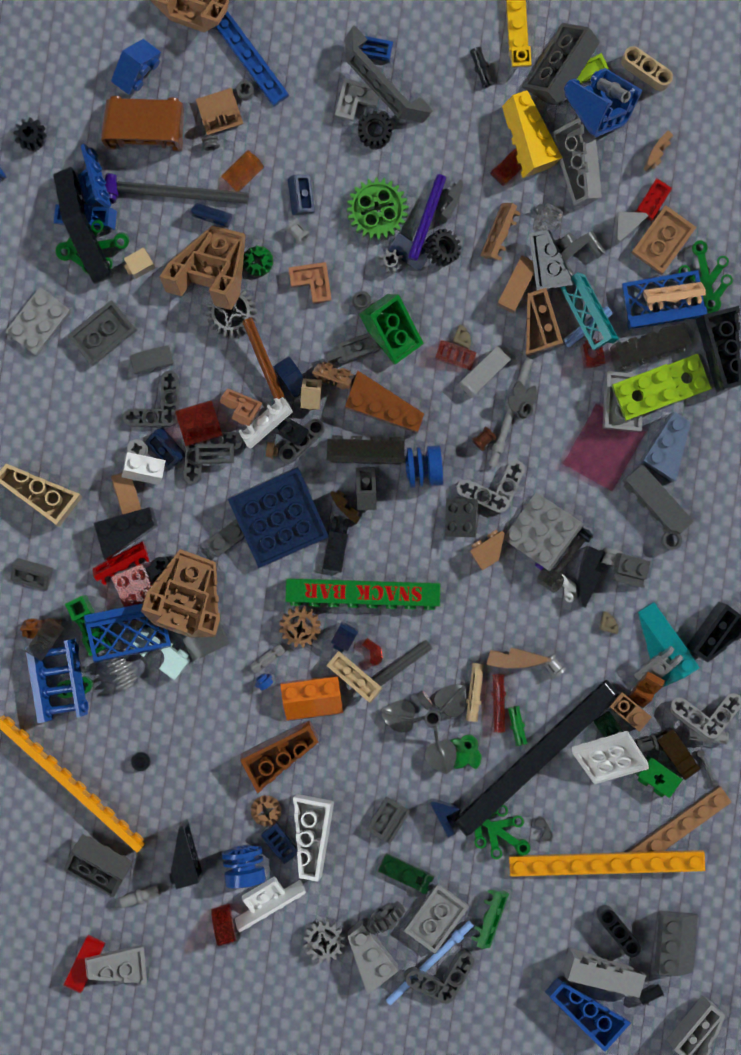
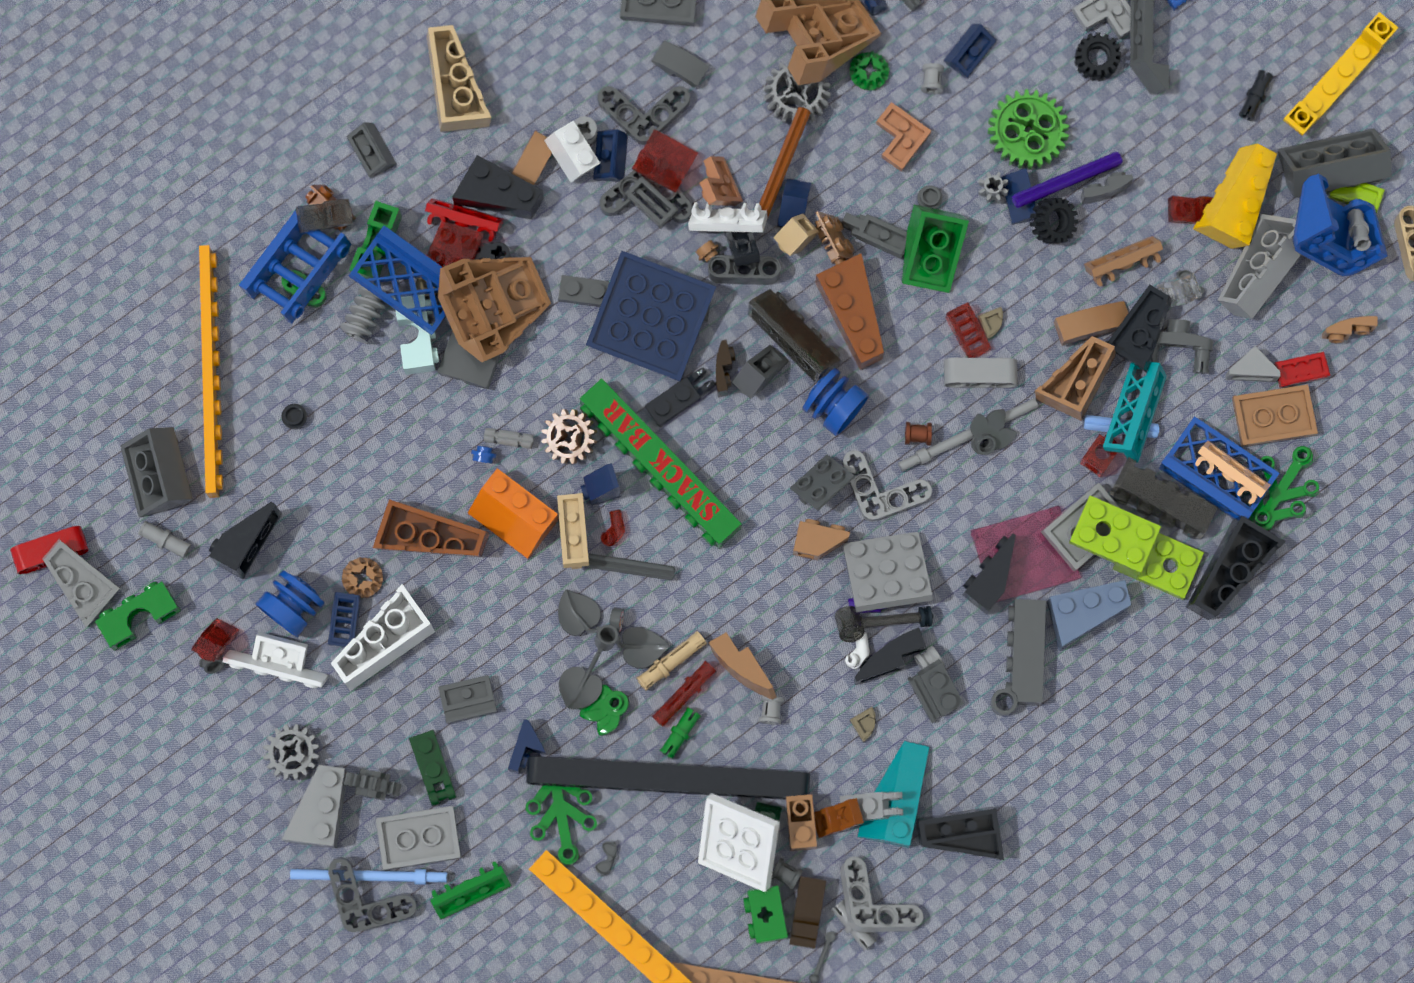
camera: 45 degrees right, 10 degrees down
(171, 934) = (116, 623): none -> green arch
(603, 483) = (992, 580): none -> black slope

